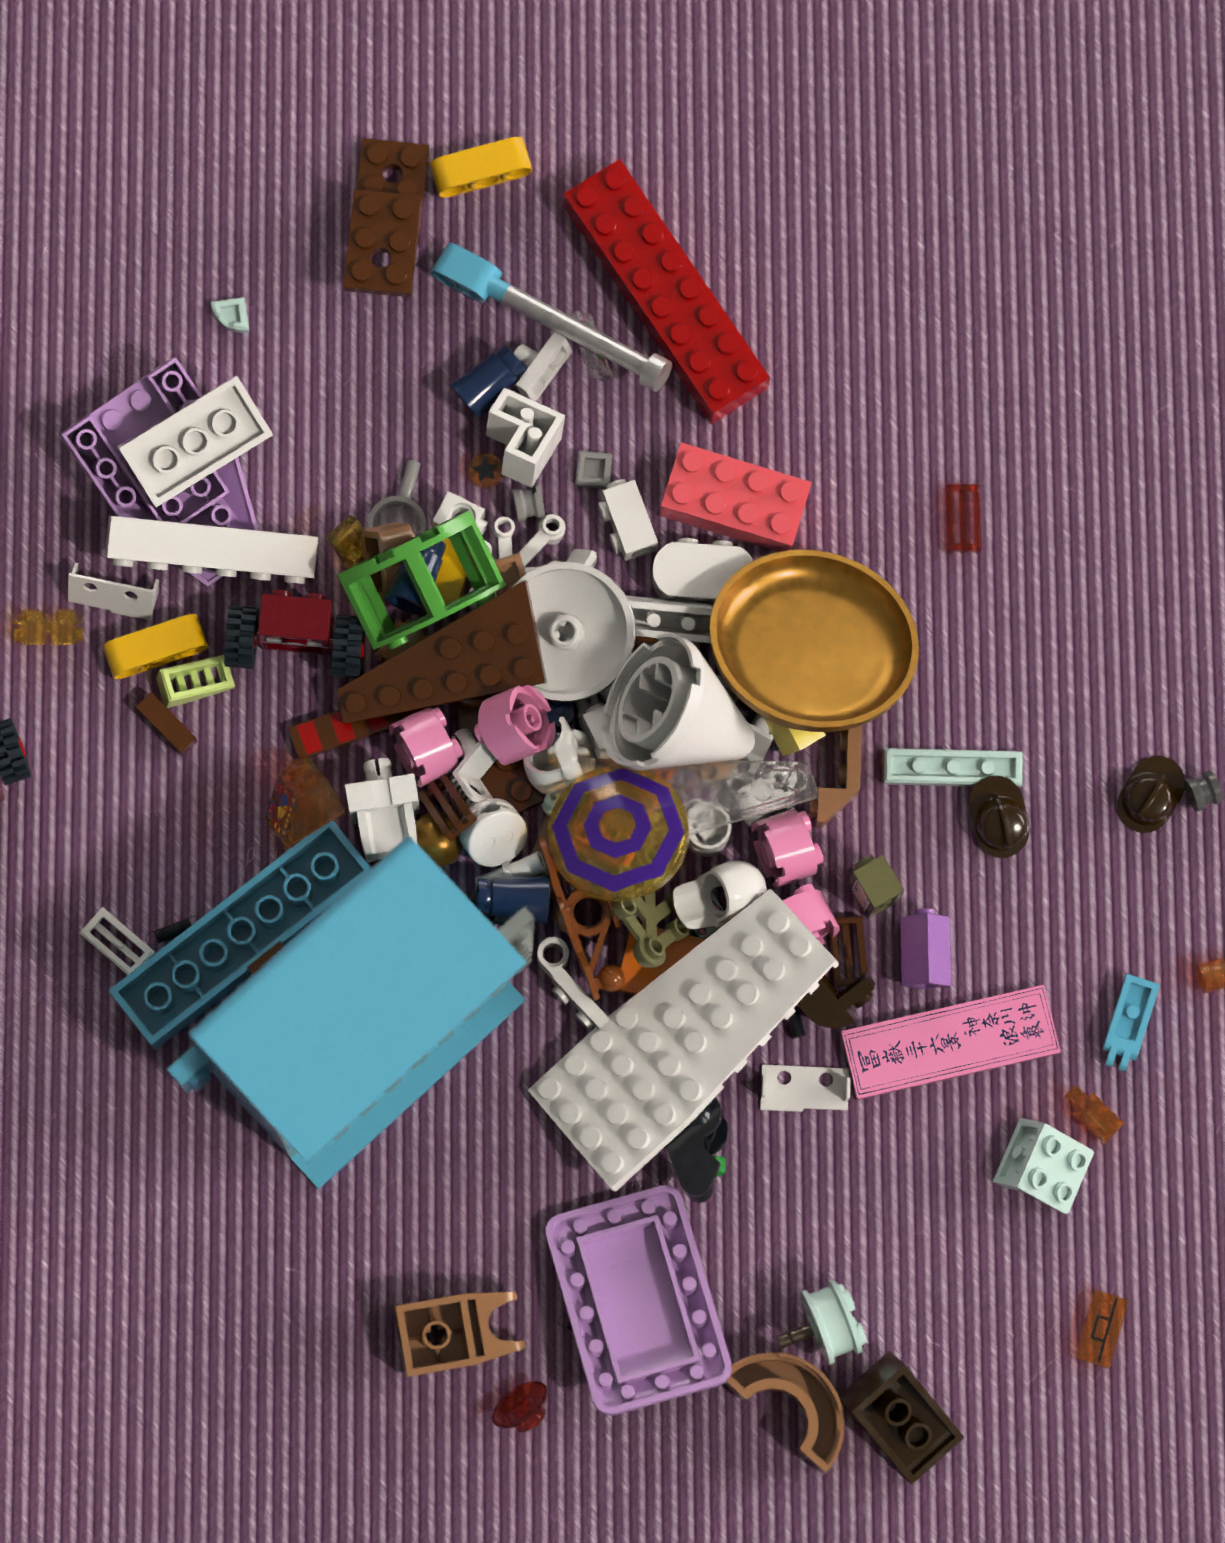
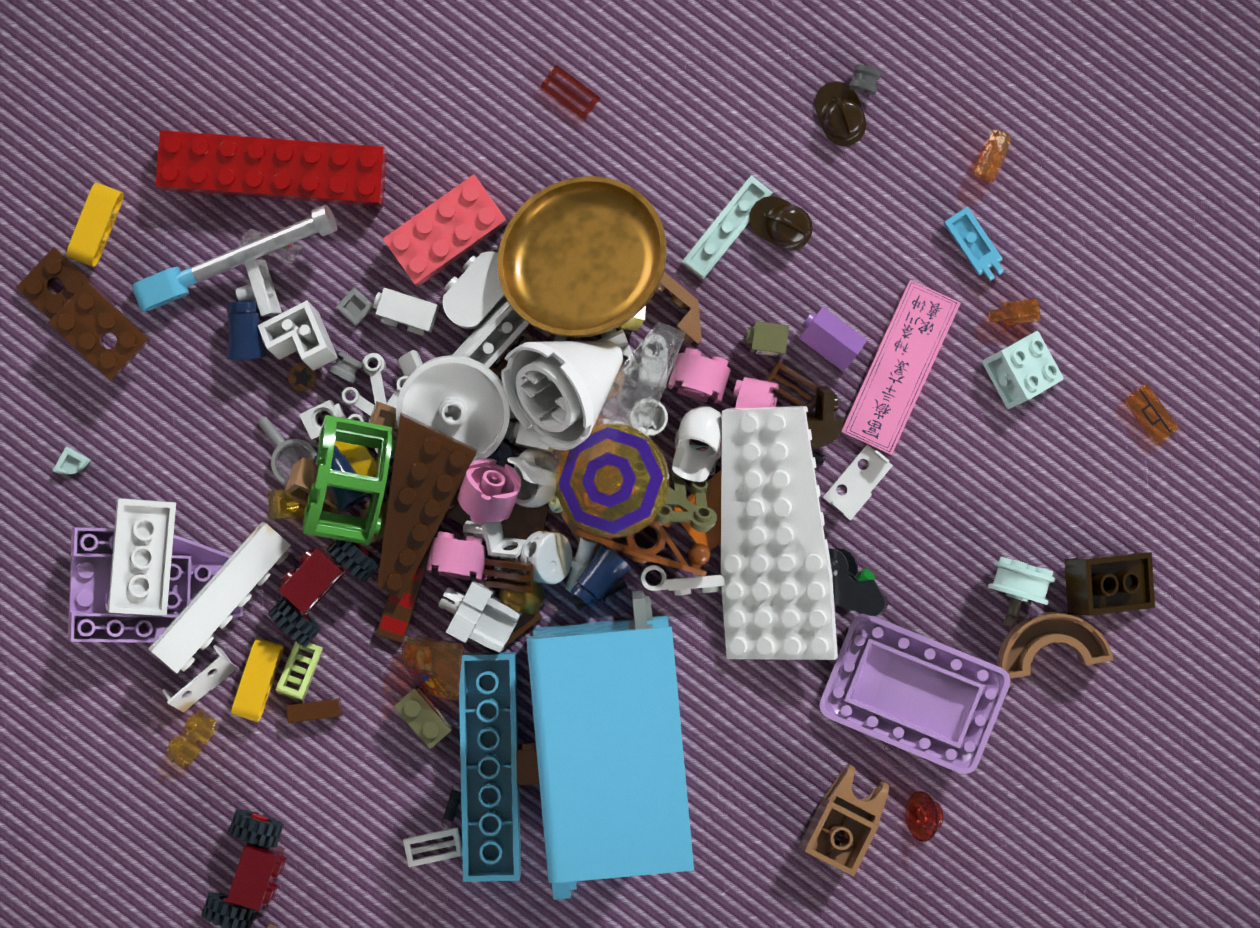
camera: 50 degrees left, 10 degrees up
(241, 833) = (423, 717): none -> olive brick

